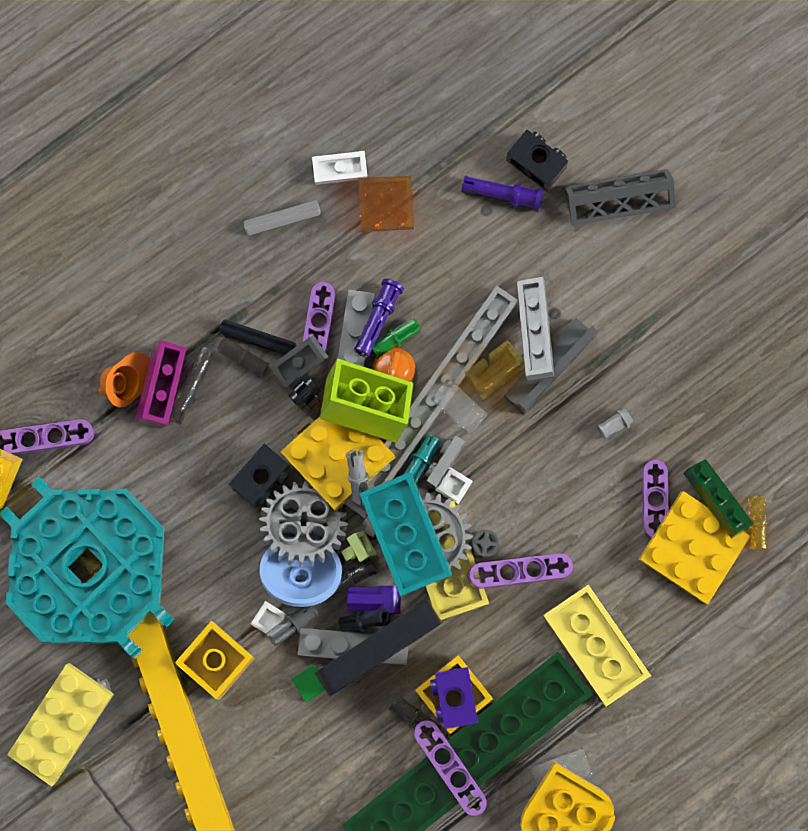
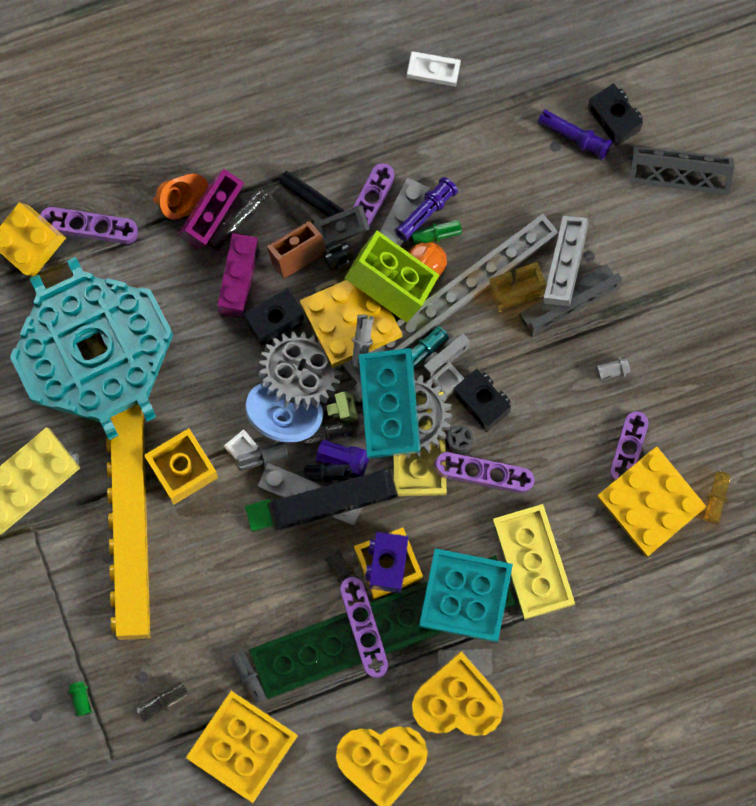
camera: 15 degrees right, 5 degrees down
(210, 444) = (238, 276): none -> magenta brick
(260, 400) = (296, 249): none -> dark orange brick
(281, 217) = (367, 97): light grey axle -> none
(386, 203) = (465, 112): clear orange plate -> none
(459, 407) = (474, 310): clear tile -> none
(502, 510) = (485, 414): none -> black brick
(541, 703) = (466, 595): none -> teal plate
(718, 498) = (687, 463): dark green plate -> none

